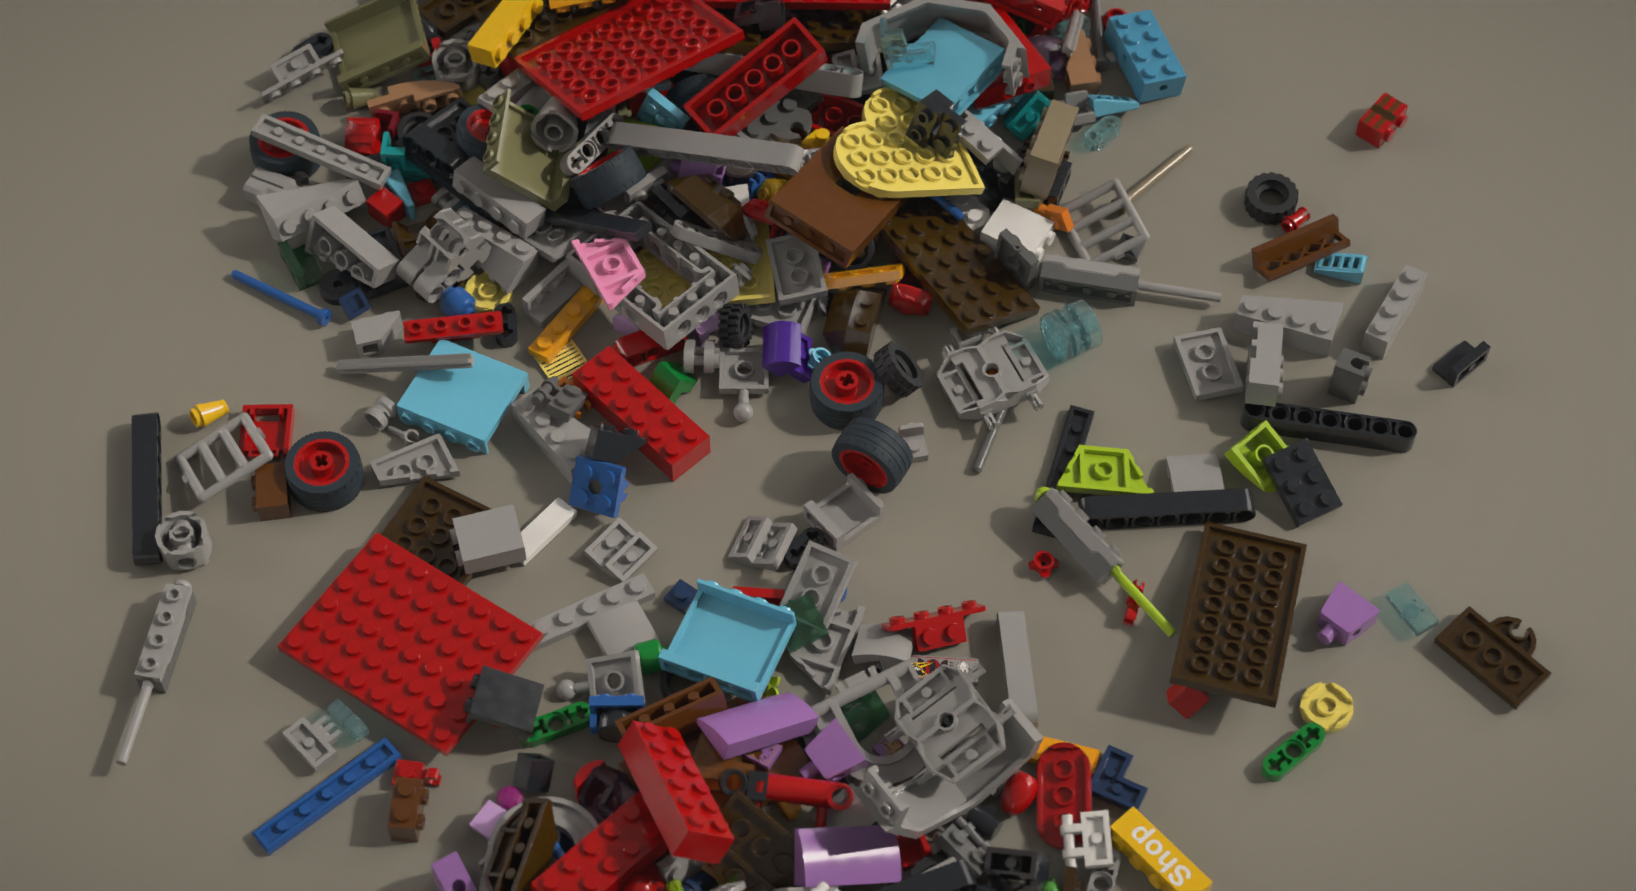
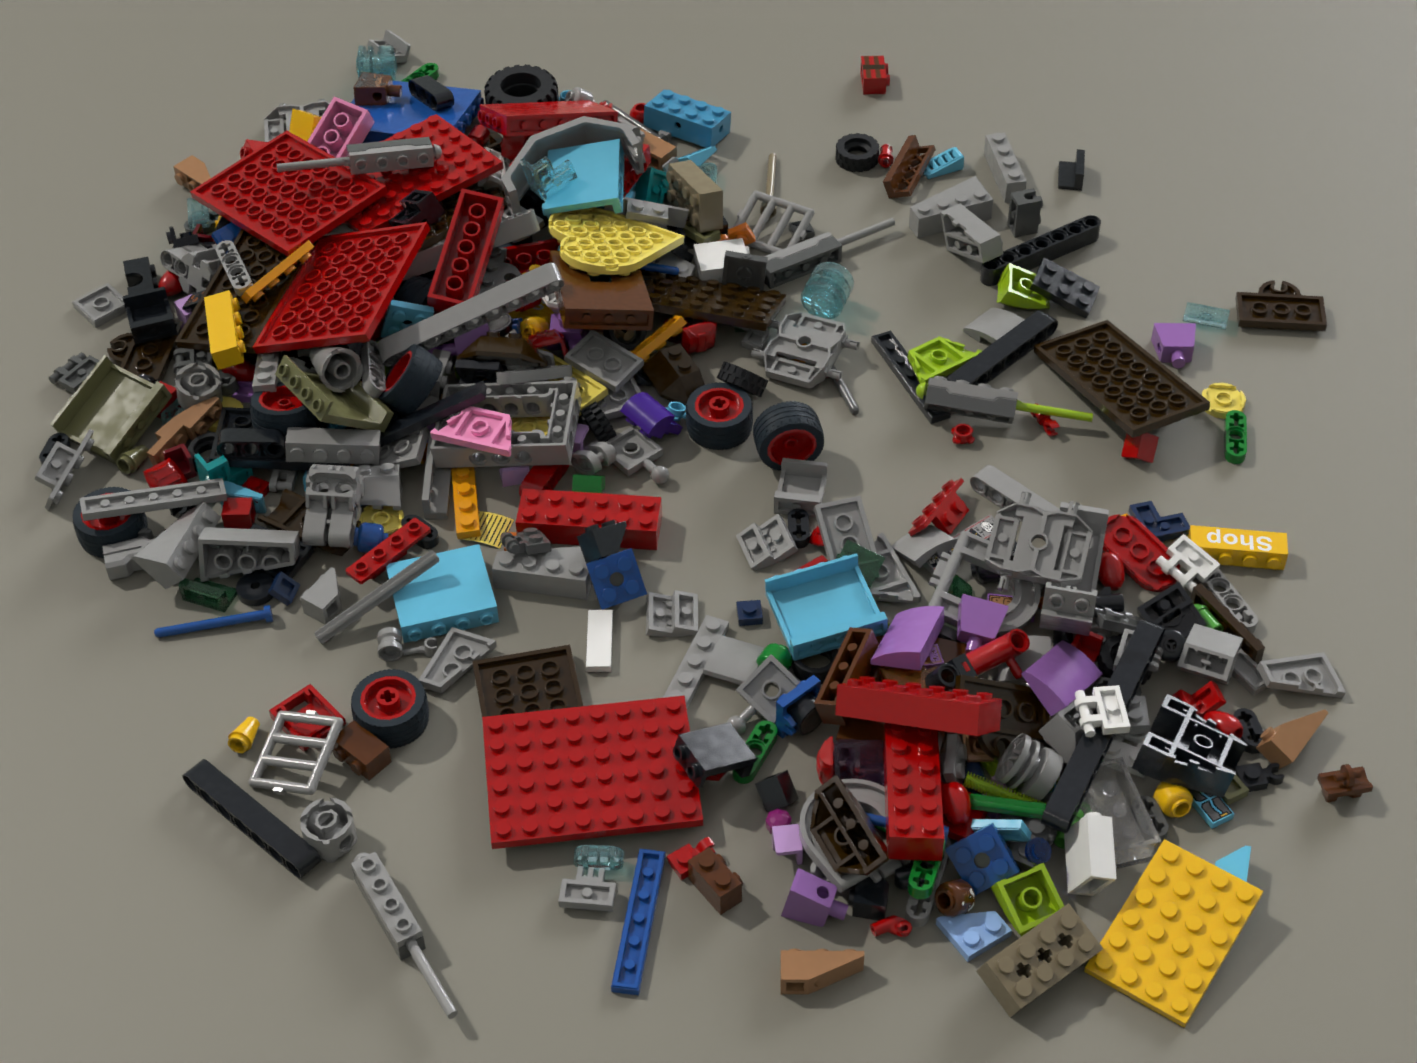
camera: 40 degrees left, 10 degrees down
(488, 539) = (575, 663): light grey brick -> none
(936, 124) = (613, 206): black brick -> none
(1208, 364) = (928, 262): light grey plate -> none

